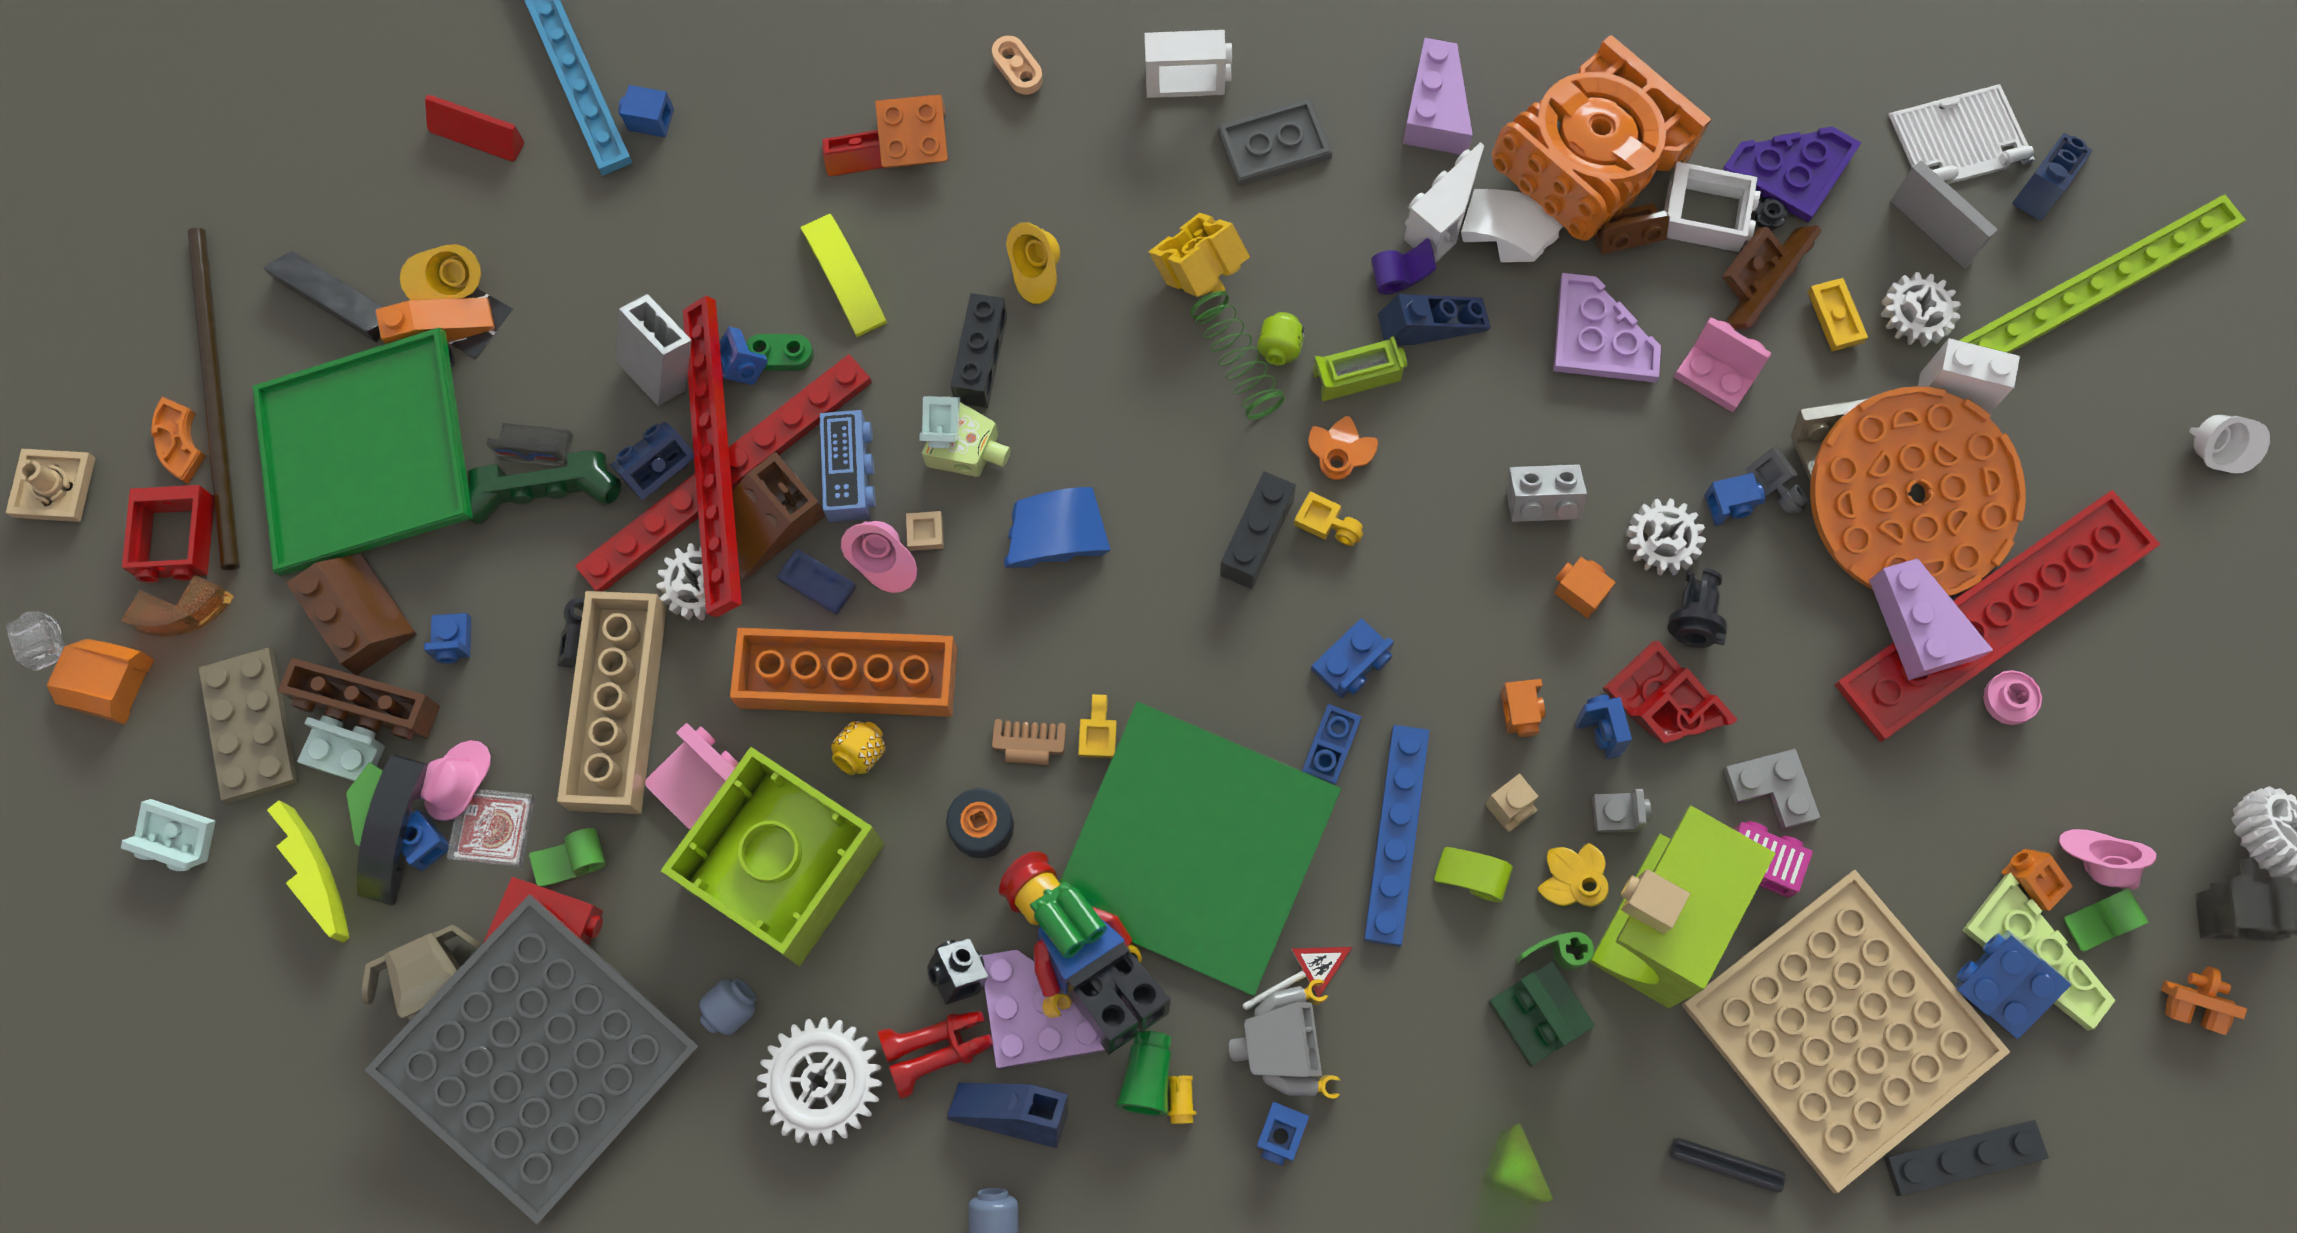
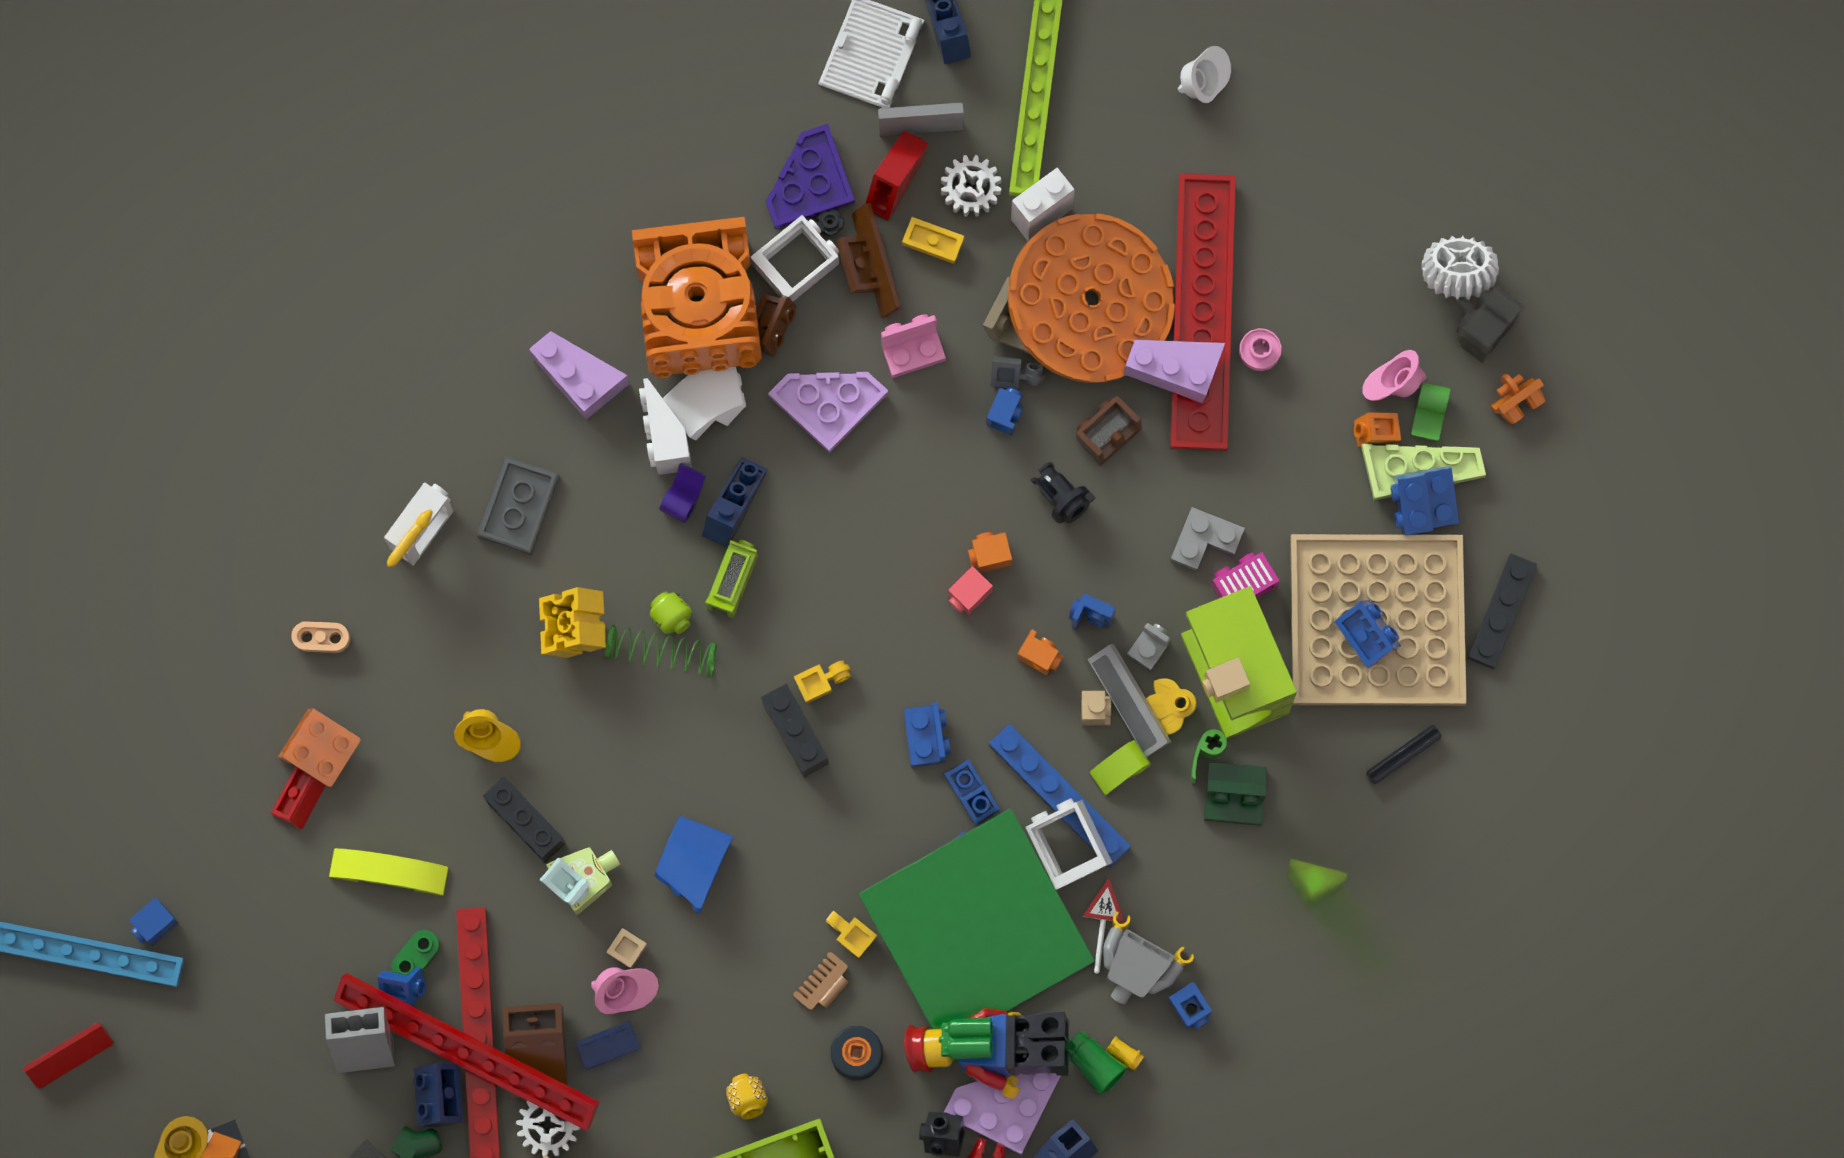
camera: 55 degrees left, 5 degrees up
(844, 672) = (690, 1069): orange brick -> none
(846, 466) = (540, 967): medium blue brick -> none
(1182, 51) = (421, 522): none -> yellow piece
(1325, 862) = (1046, 855): none -> white window
(1341, 444) = (775, 629): orange plate -> none
(1528, 594) = (969, 591): none -> coral brick
(1546, 493) = (911, 527): light grey brick -> none
(1549, 832) = (1129, 700): none -> tile
(1666, 697) = (1099, 559): red slope -> none
(1669, 551) = (1008, 474): white gear -> none
(1801, 609) = (1108, 429): none -> reddish brown window
(1824, 1026) = (1368, 632): none -> blue bracket
(1869, 233) = (896, 174): none -> red slope

